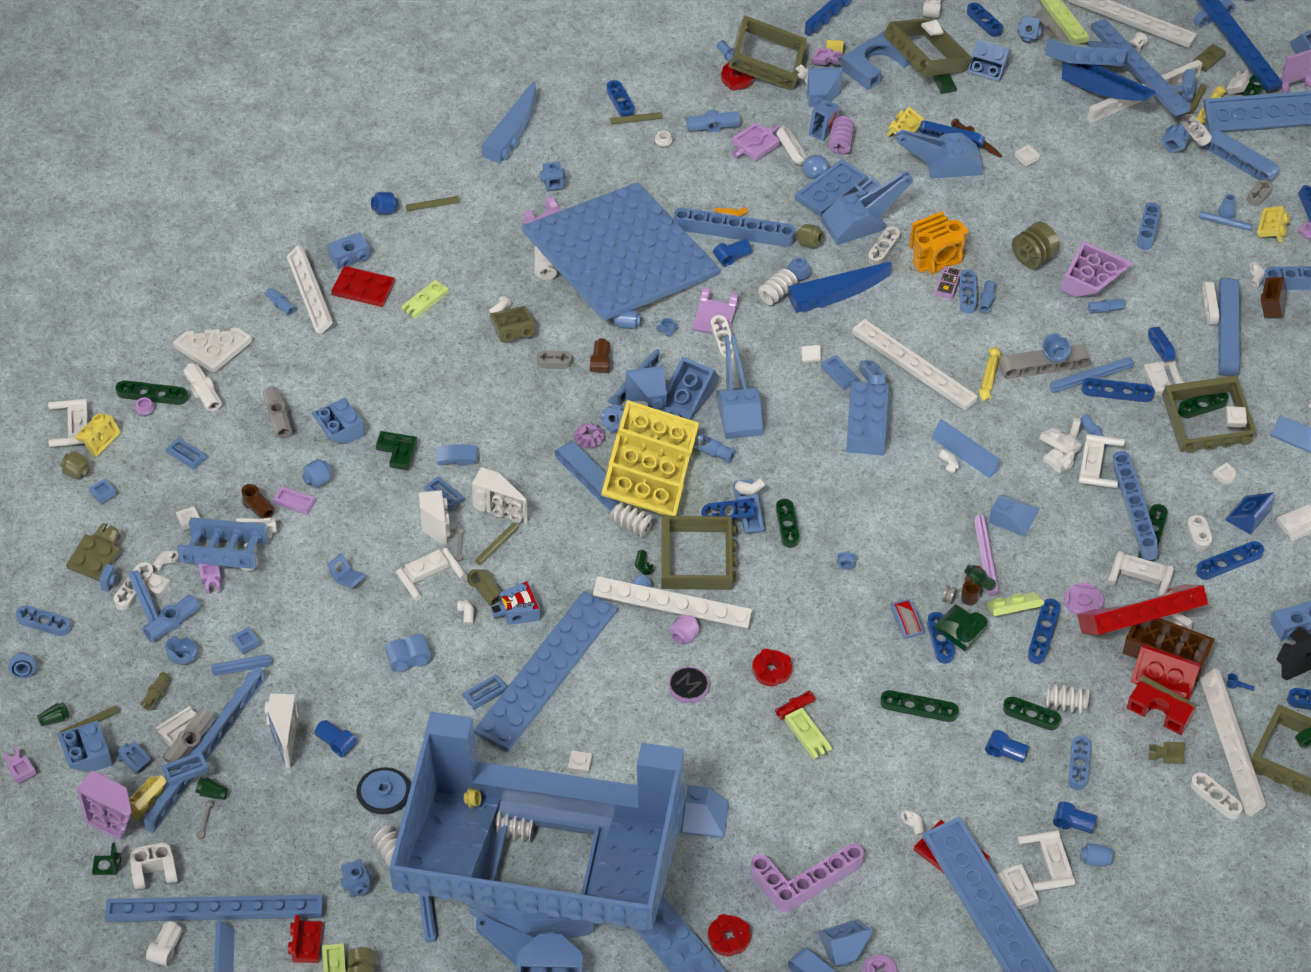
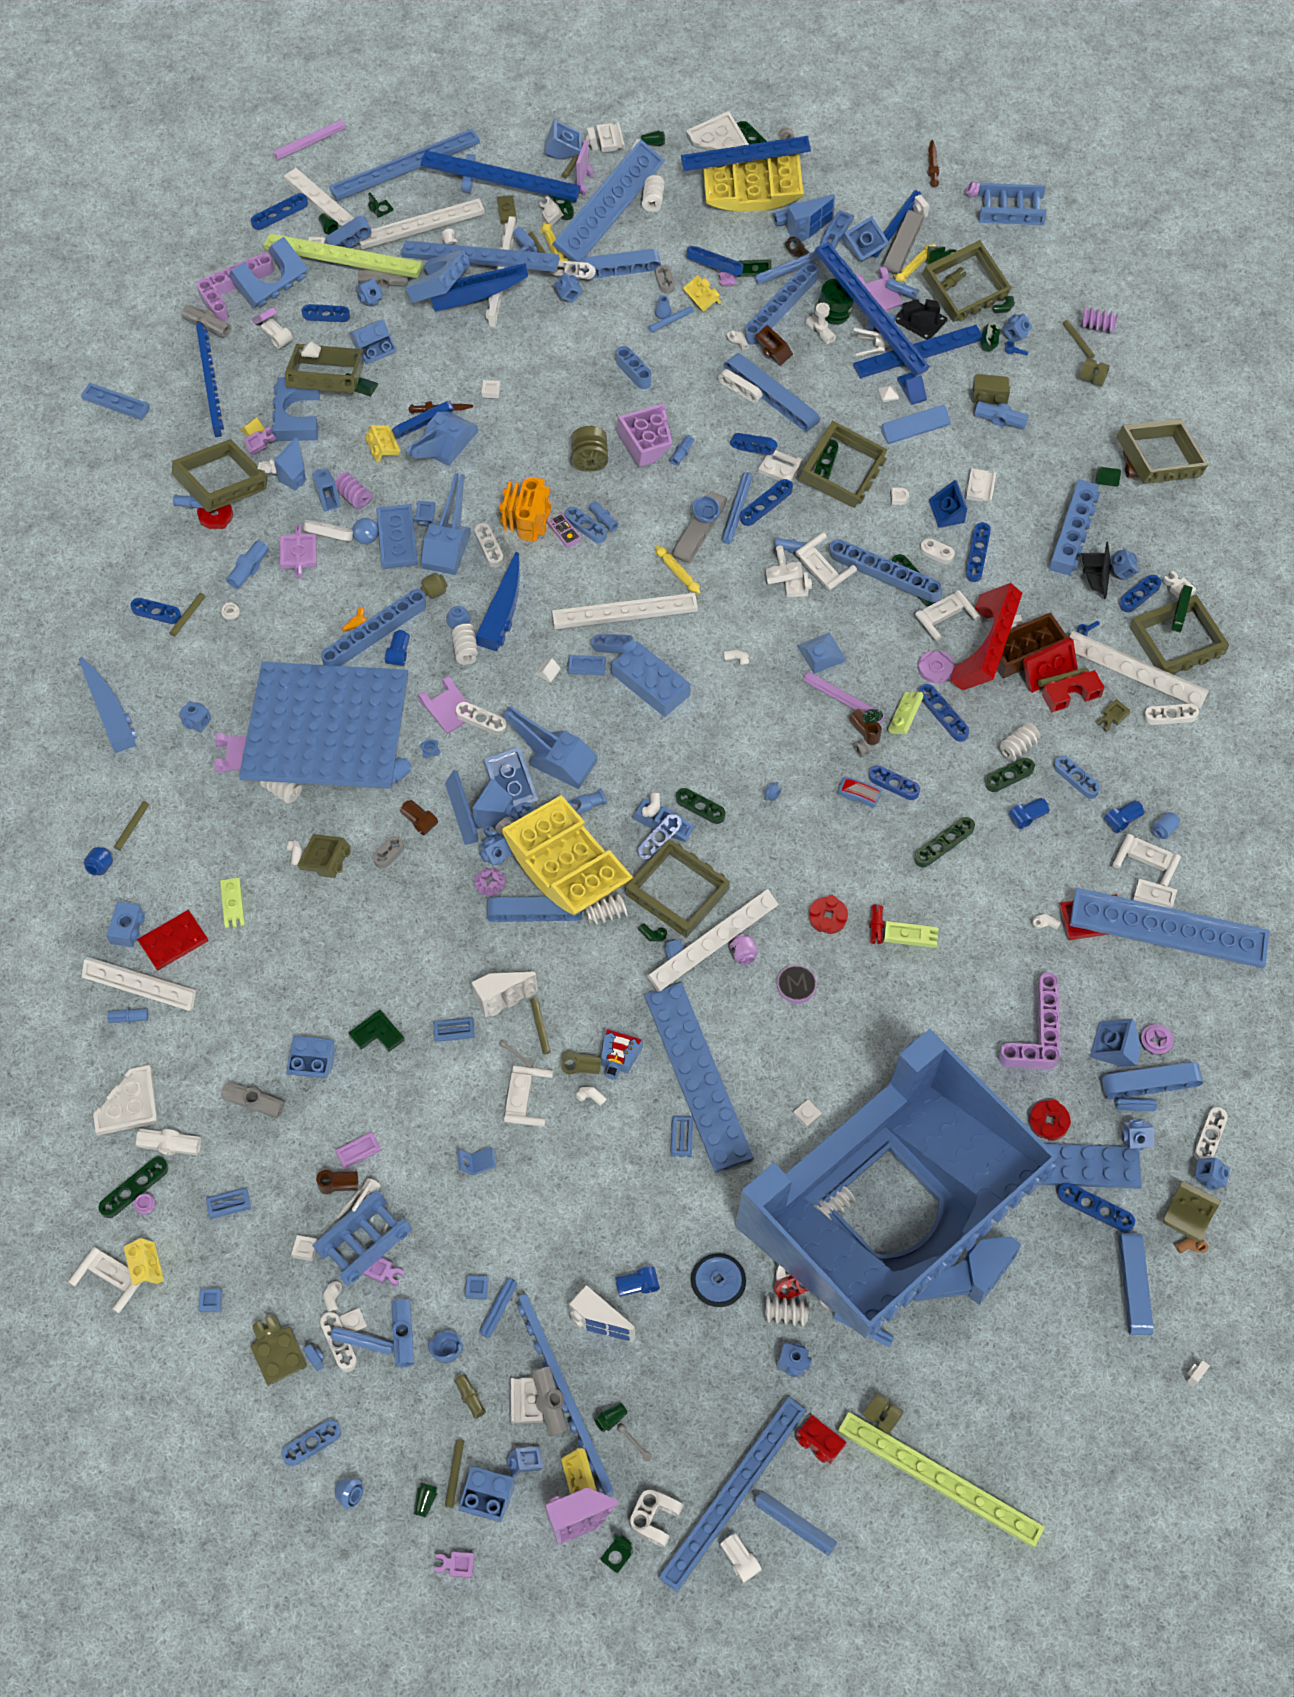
camera: 50 degrees left, 10 degrees up
(75, 465) = (161, 1305): olive head -> none
(186, 771) = (578, 1443): medium blue tile -> none
(316, 473) = (349, 1112): medium blue head -> none
(407, 652) = (597, 1168): medium blue brick -> none
(434, 515) = (480, 1053): white slope -> none
(459, 453) = (423, 991): medium blue slope -> none
(472, 798) = (795, 1217): light yellow plate -> none
(961, 626) = (899, 761): dark green slope -> none
(966, 449) = (736, 637): medium blue slope -> none
(1235, 416) = (865, 450): white plate -> none

